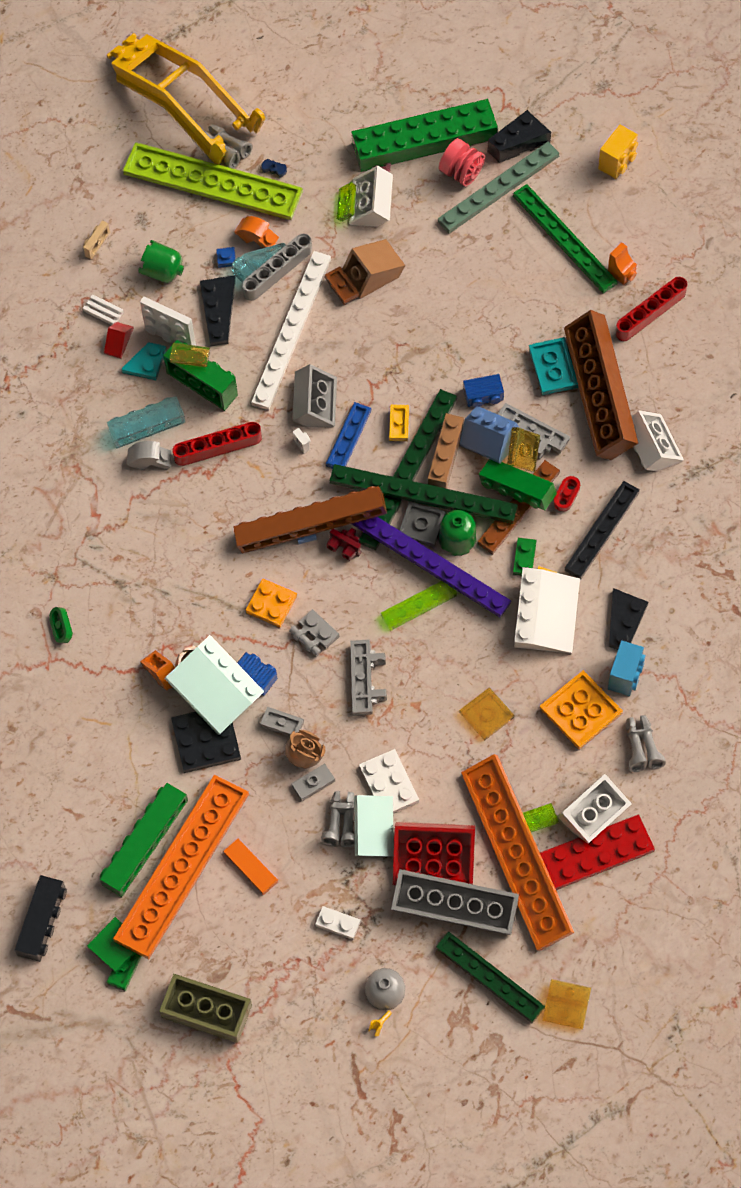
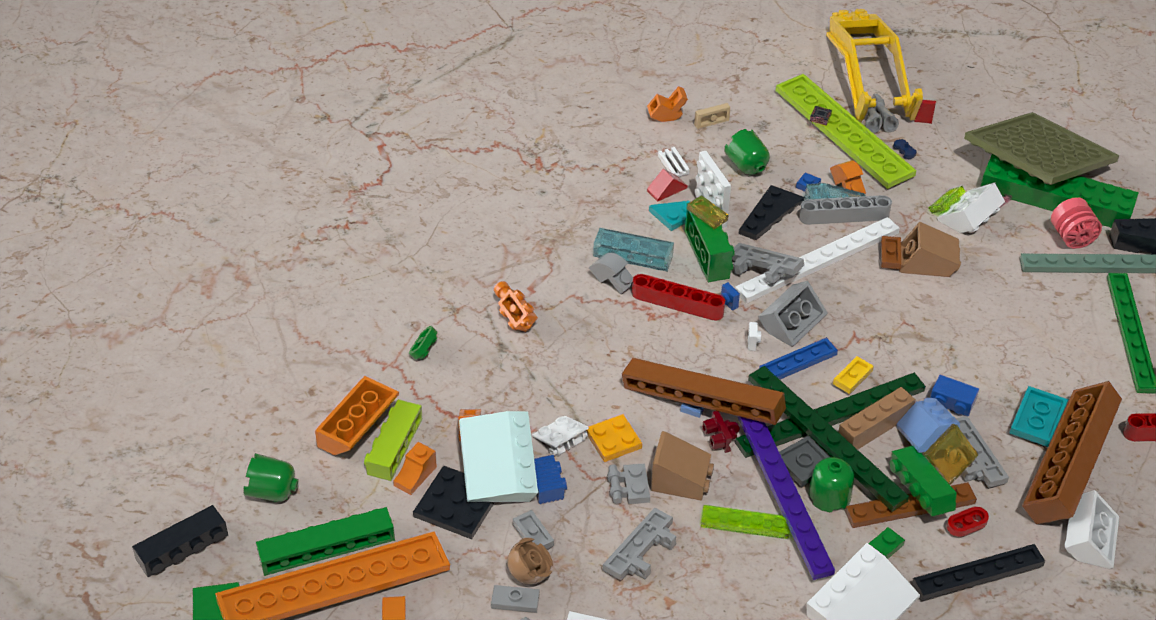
camera: 35 degrees right, 20 degrees down
(54, 257) = (669, 108): none -> orange brick
(61, 823) = (270, 479): none -> green cylinder
(75, 726) = (354, 416): none -> orange slope
(108, 547) = (515, 307): none -> orange brick
(117, 723) = (393, 440): none -> lime brick
(154, 735) = (416, 468): none -> orange arch
(186, 181) = (821, 115): none -> tile
(232, 627) = (562, 434): none -> white hinge
(255, 414) = (731, 296): none -> blue plate
(268, 112) = (925, 112): none -> red slope
(271, 360) = (775, 262): none -> light grey hinge
(344, 596) = (681, 468): none -> medium nougat slope
(385, 101) = (1041, 147): none -> olive plate

